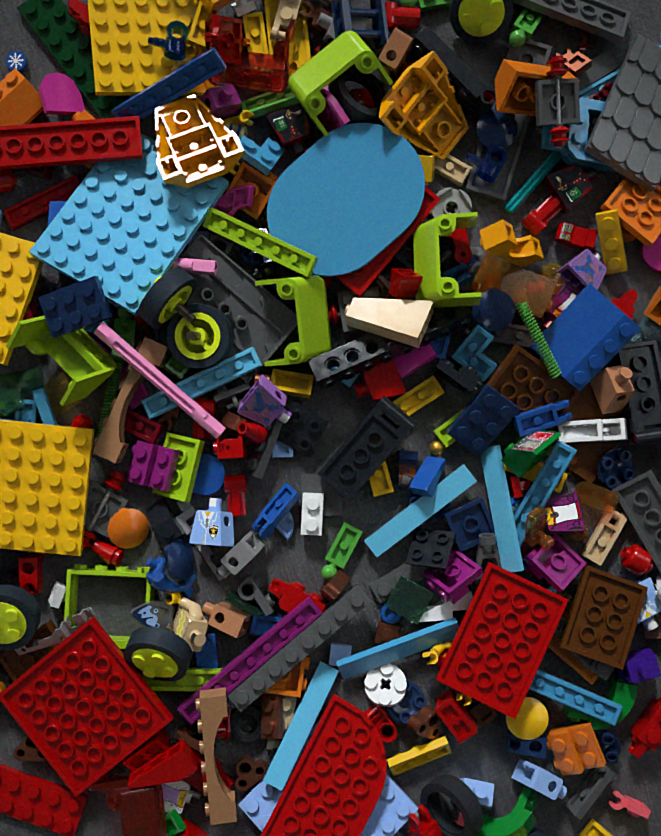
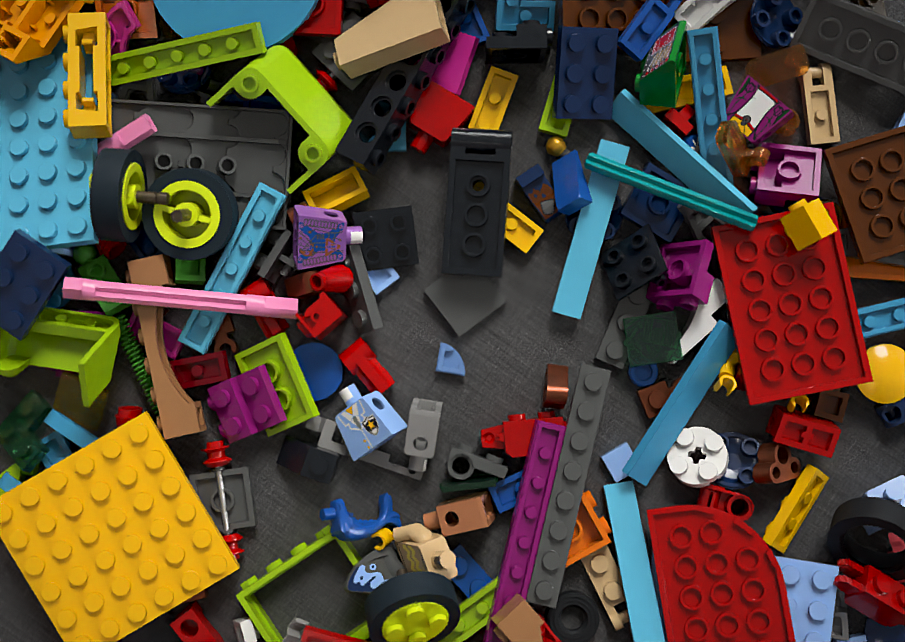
camera: 30 degrees left, 0 degrees up
(109, 553) = (270, 542): red cone -> none
(128, 528) = (271, 497): orange dish -> none
(180, 559) = (357, 488): dark blue dish -> none
(219, 190) = (94, 120): none -> yellow brick
(271, 716) = (594, 588): copper plate -> none
(275, 511) = (426, 352): blue hinge -> none
(312, 513) = (469, 324): white plate -> none
(341, 550) = (533, 342): bright green plate -> none
(481, 525) = (671, 192): none -> teal axle
(544, 602) = (807, 223): none -> yellow brick
(636, 560) = (875, 104): red head -> none

